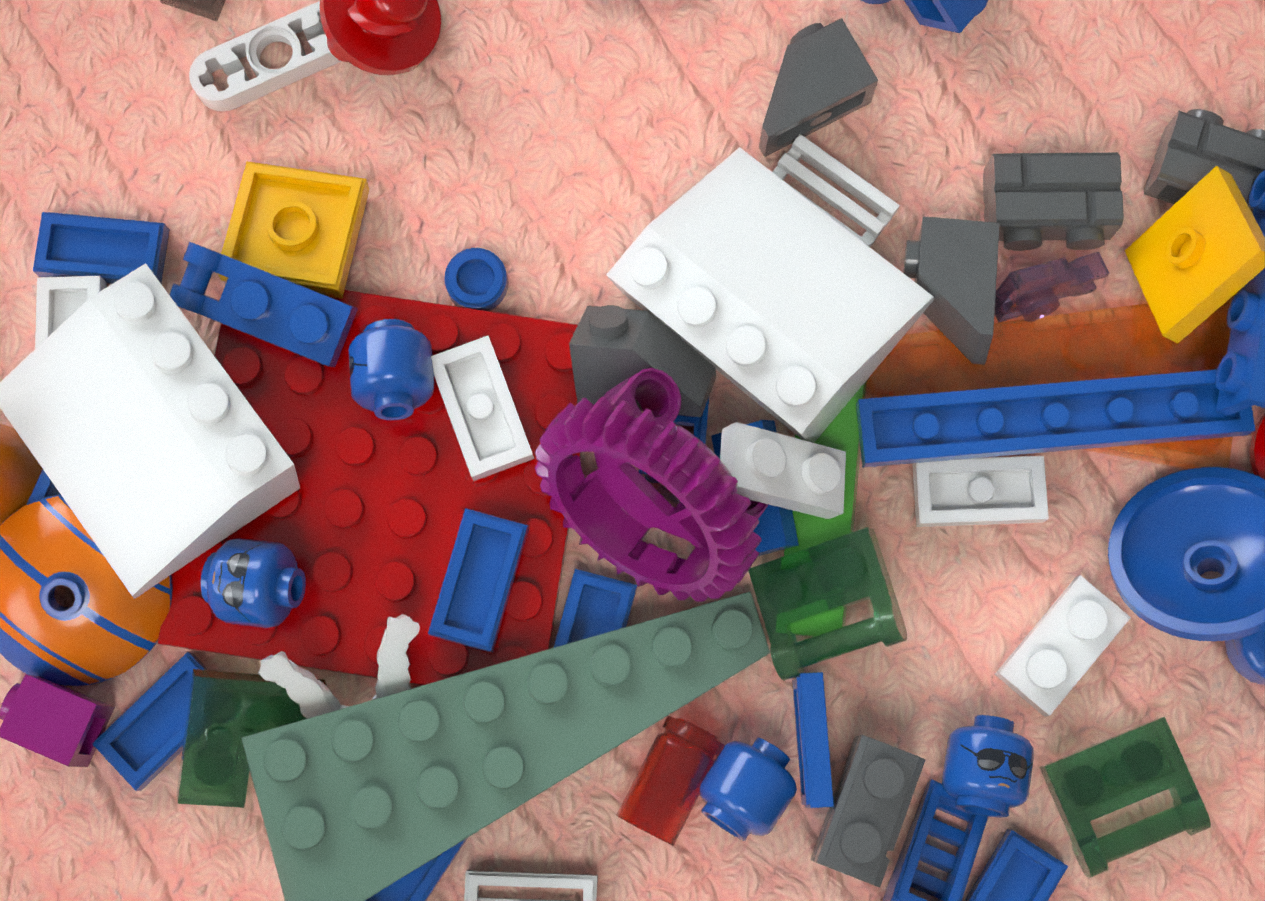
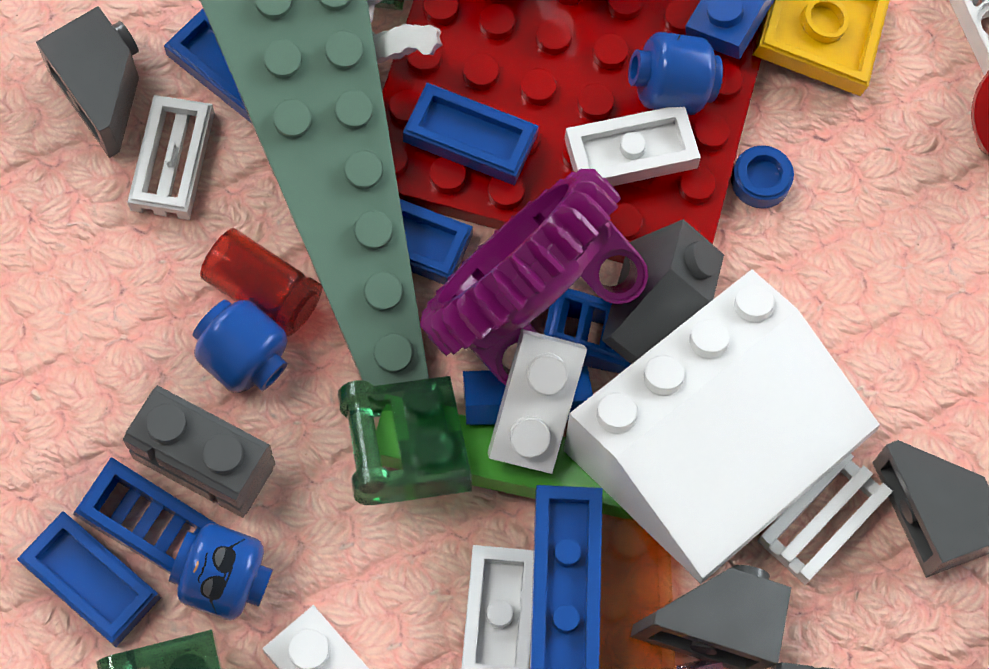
camera: 90 degrees right, 10 degrees down
(812, 740) = (278, 412): blue tile -> none

